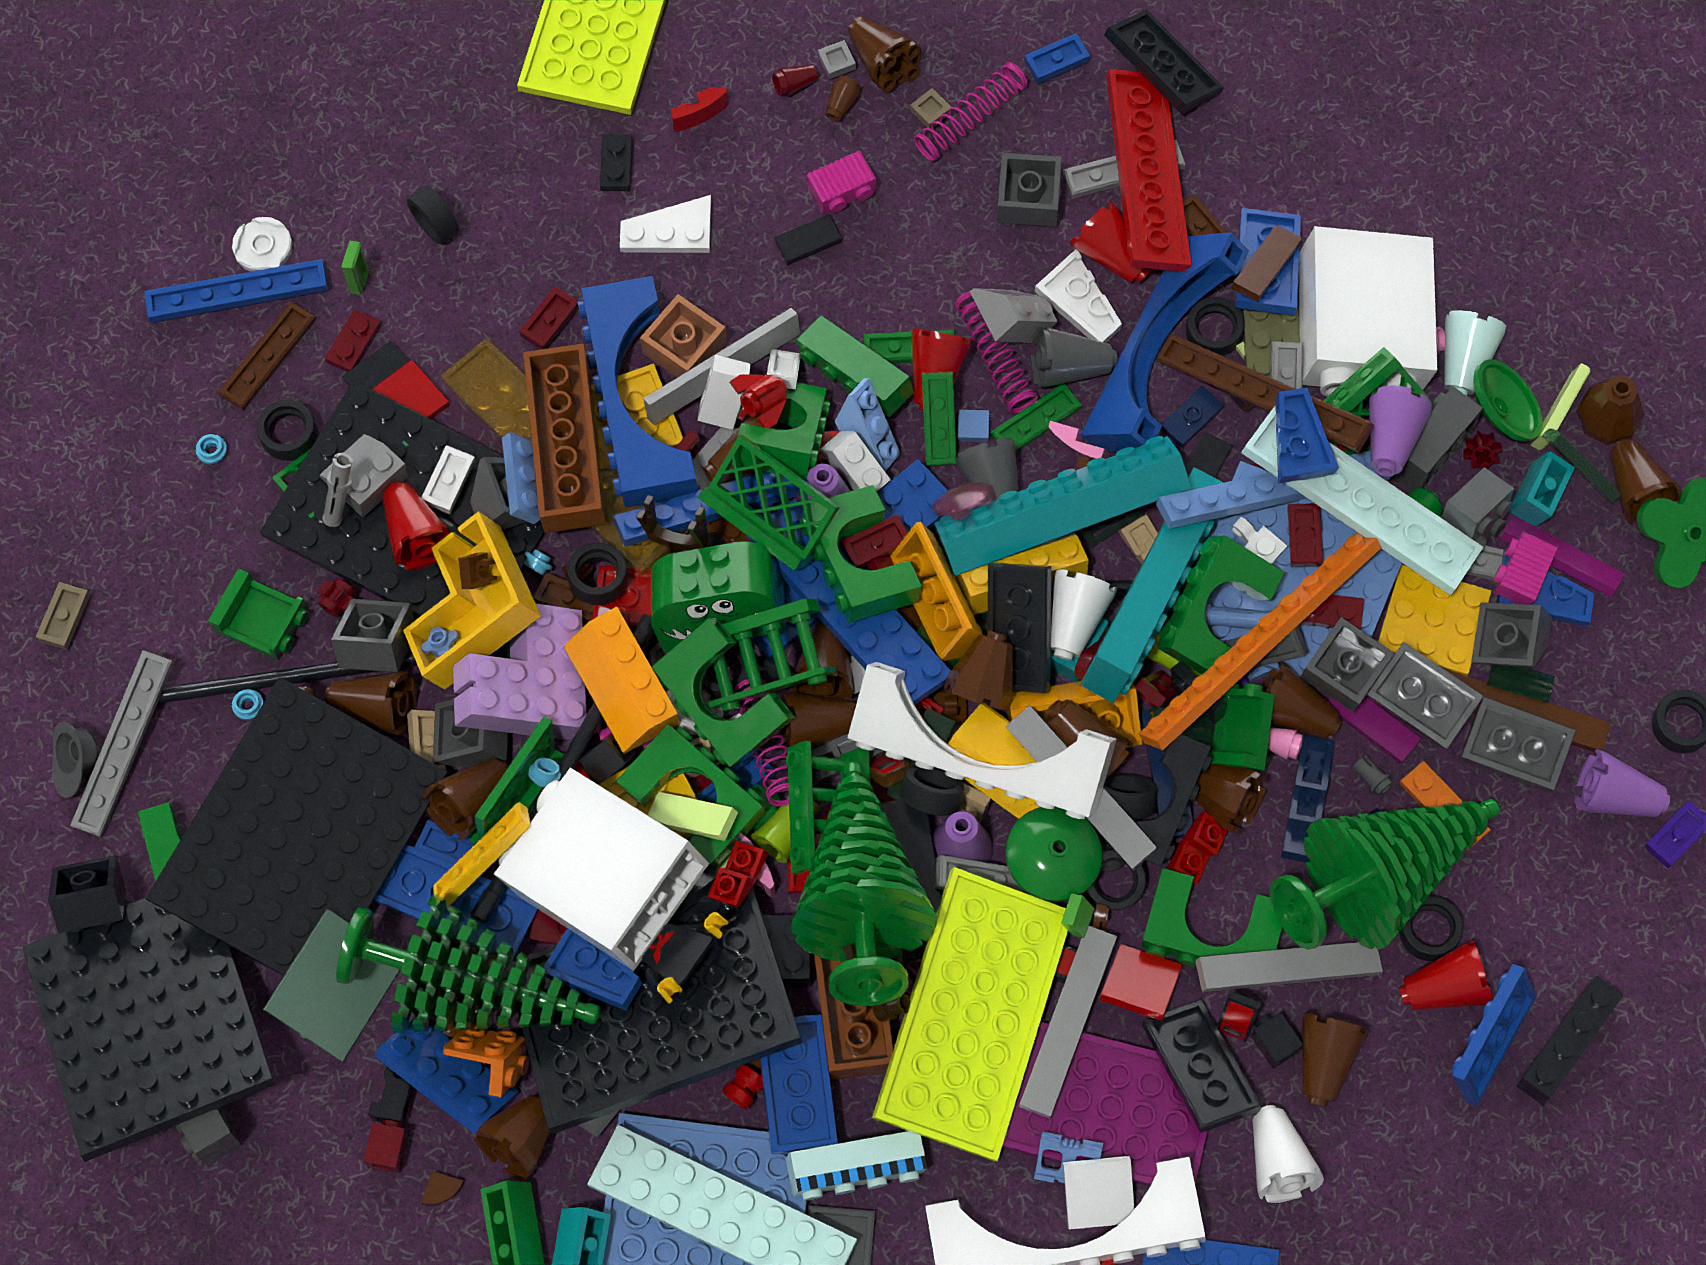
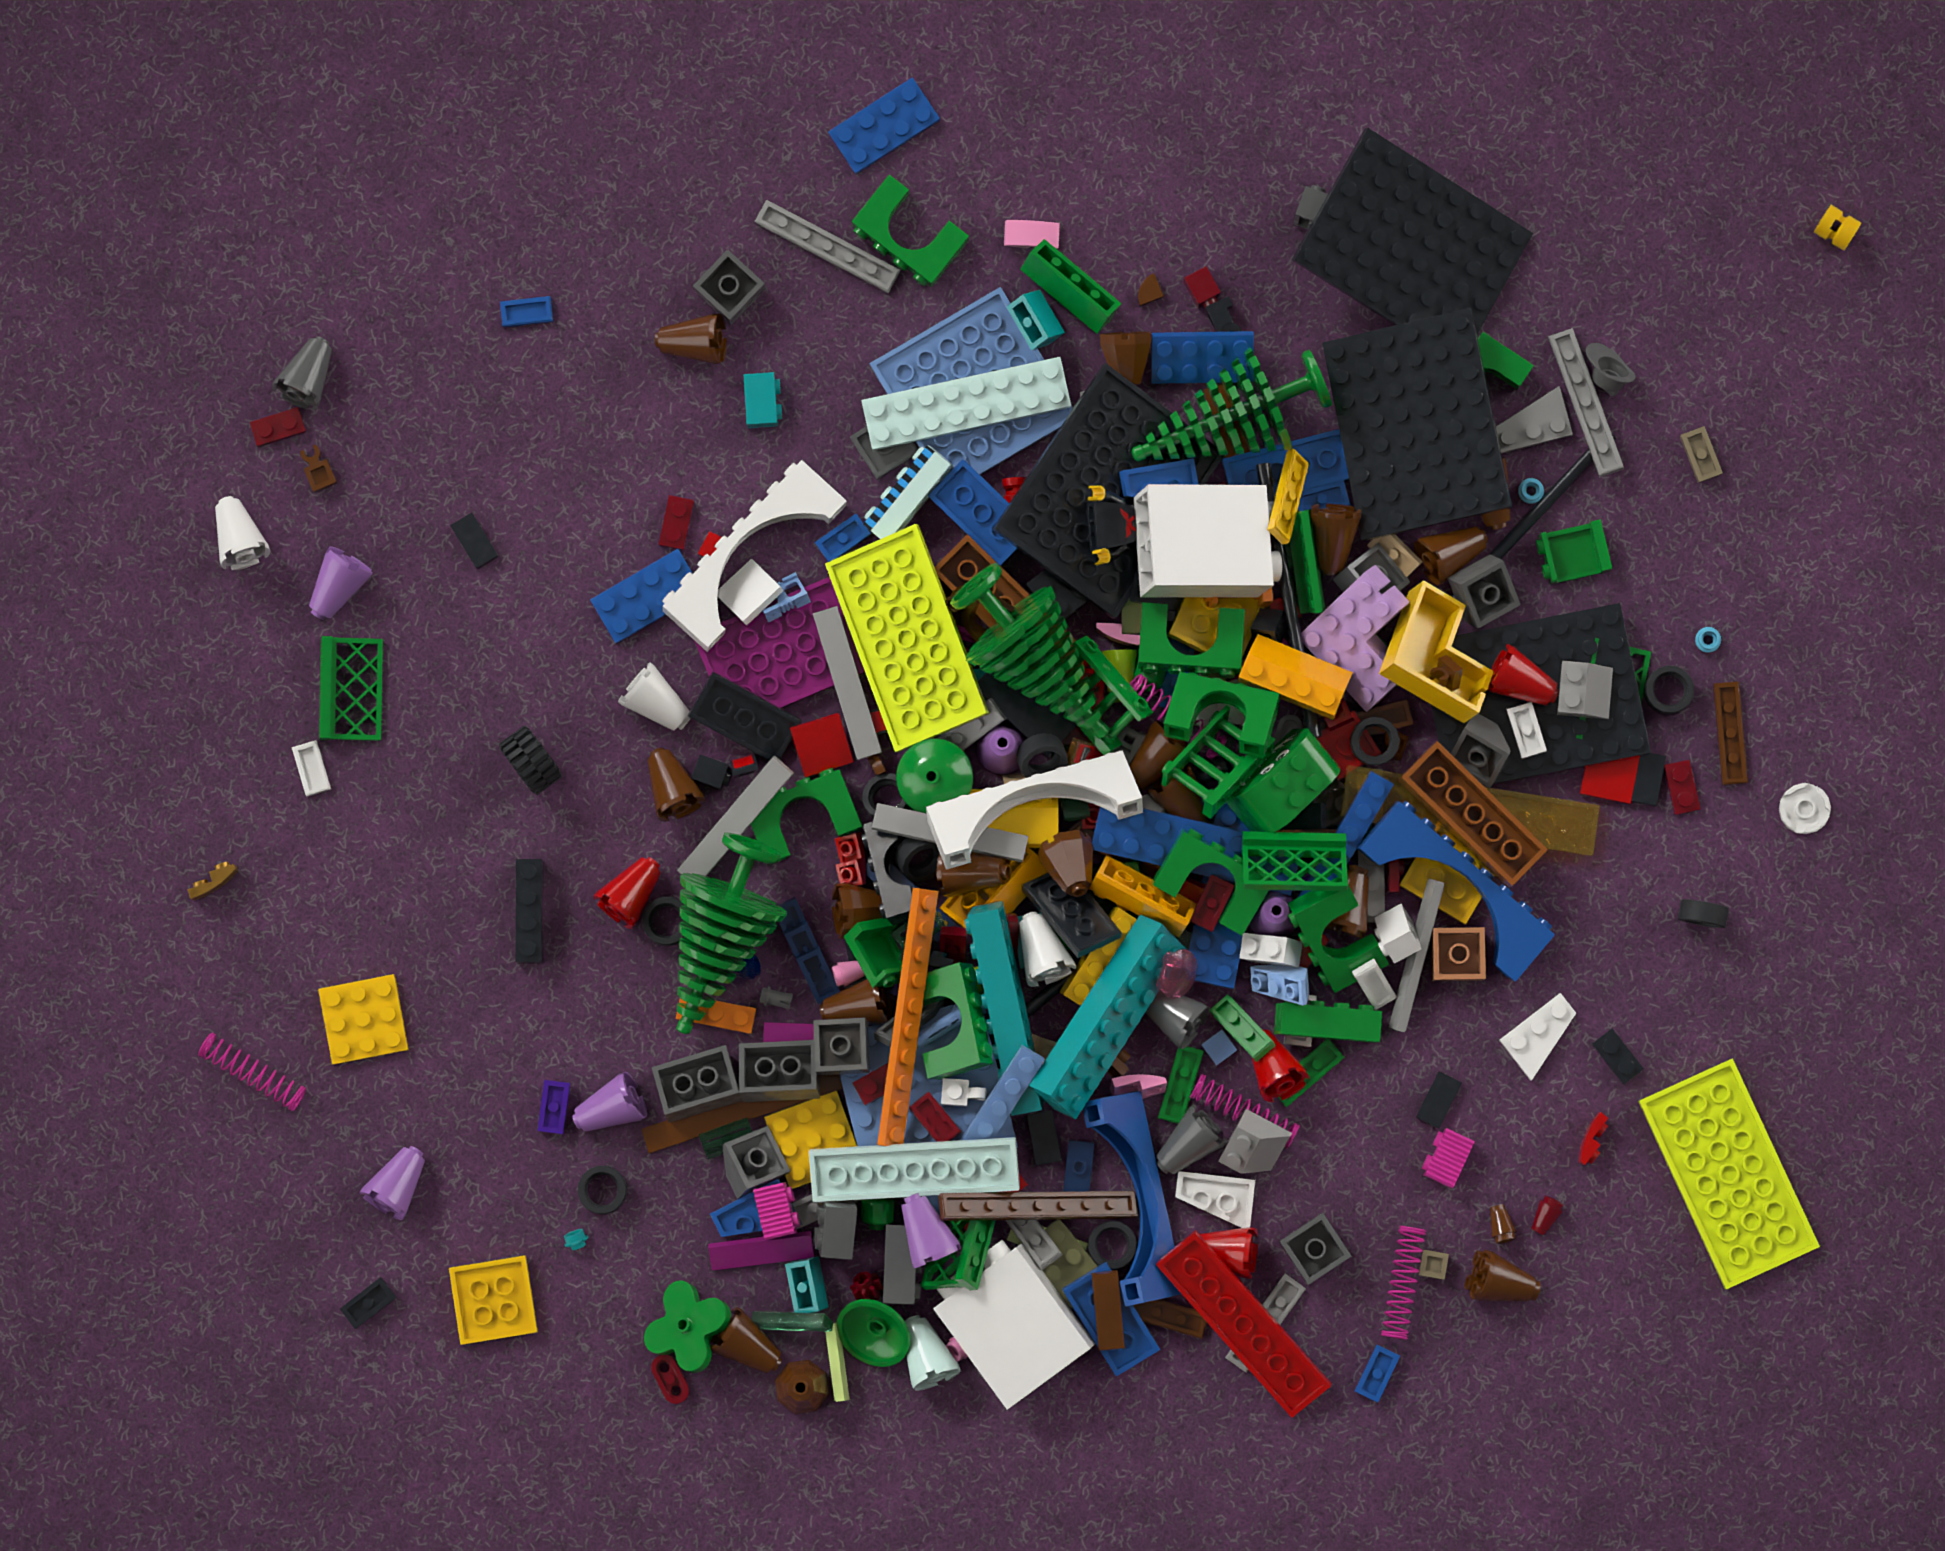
camera: 140 degrees right, 15 degrees up
(87, 894) = (1517, 290): black brick -> none
(180, 762) = (1535, 424): none -> light grey wing
(236, 290) = (1791, 761): blue plate -> none
(320, 1006) = (1326, 336): sand green piece -> none
(335, 596) = (1534, 601): dark red gear -> none
(338, 483) = (1582, 656): light grey pin -> none
(355, 268) = (1720, 833): bright green tile -> none
(439, 641) = (1428, 615): medium blue plate -> none
(500, 1049) = (1181, 386): orange bracket -> none
(520, 477) = (1478, 765): medium blue plate -> none
(537, 561) = (1425, 727): medium azure plate -> none
(544, 771) = (1298, 586): medium azure plate -> none
(549, 318) = (1563, 904): dark red plate -> none
(674, 541) = (1329, 801): dark brown piece -> none
(693, 815) = (1178, 622): yellowish green tile -> none
(739, 875) = (1120, 612): red slope -> none
(762, 396) = (1363, 940): red brick -> none
(836, 59) = (1529, 1253): light grey plate -> none
(958, 1176) = (842, 538): none -> blue plate
(1077, 915) = (889, 749): bright green tile -> none
(1164, 61) = (1300, 1427): black tile -> none
(1300, 437) = (982, 1174): blue wing -> none
(1462, 1187) = (530, 760): none -> black tyre
(1494, 1035) = (578, 875): blue plate -> none

